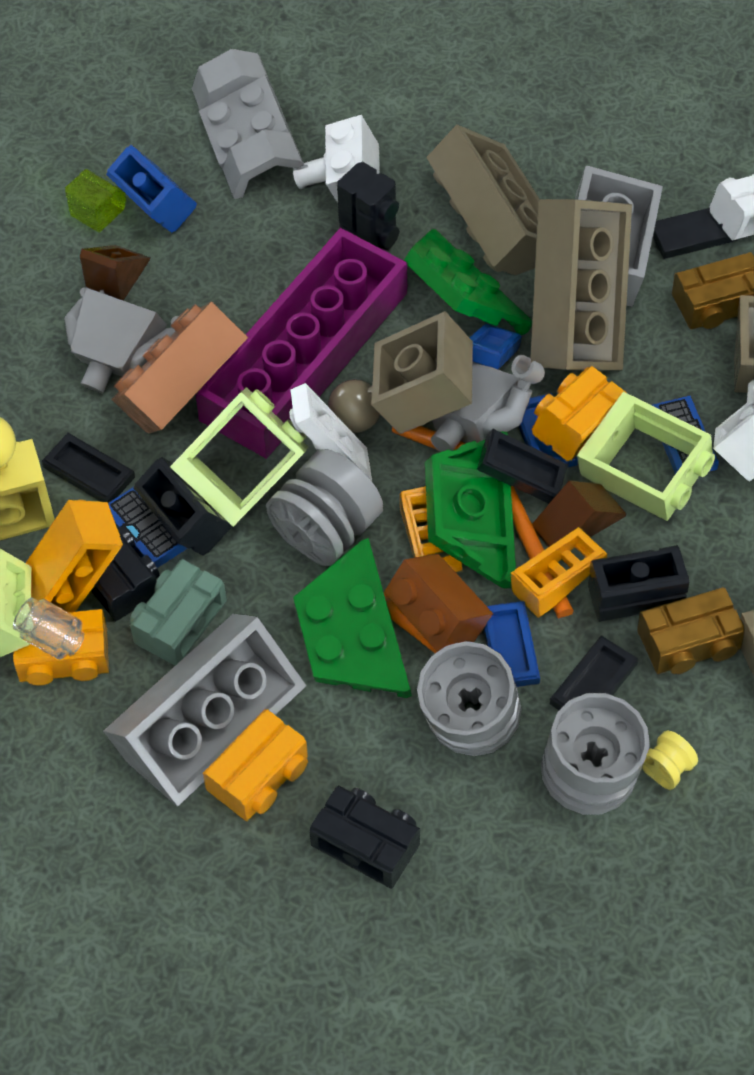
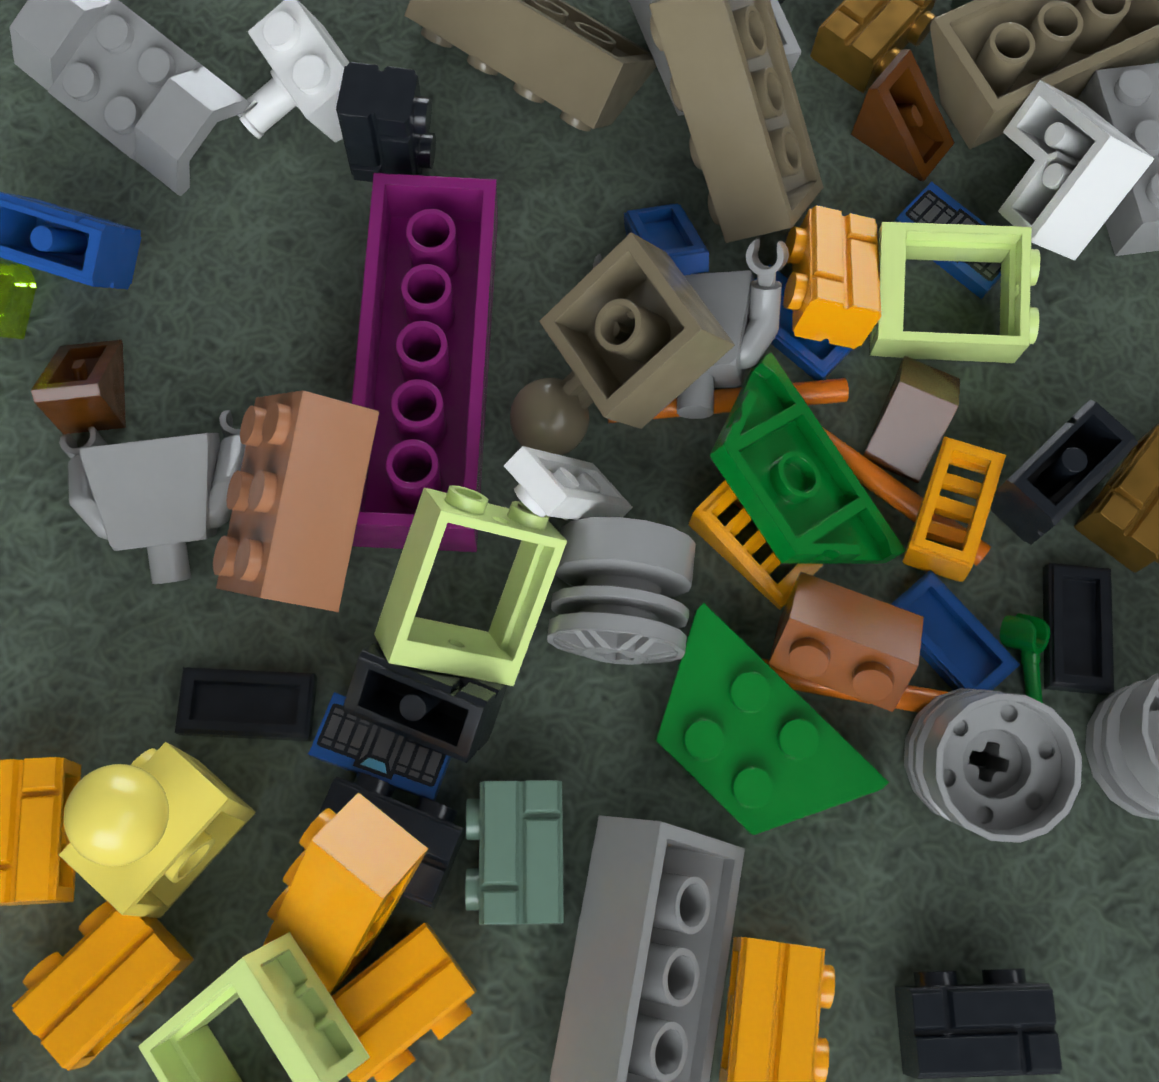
camera: 40 degrees left, 15 degrees up
(49, 628) = (388, 1026): clear brick -> none
(461, 284) = (565, 172): green wing -> none
(521, 466) = (819, 390): black tile -> none
(559, 670) = (1031, 637): none -> green hand
(695, 350) = (903, 119): none -> reddish brown slope

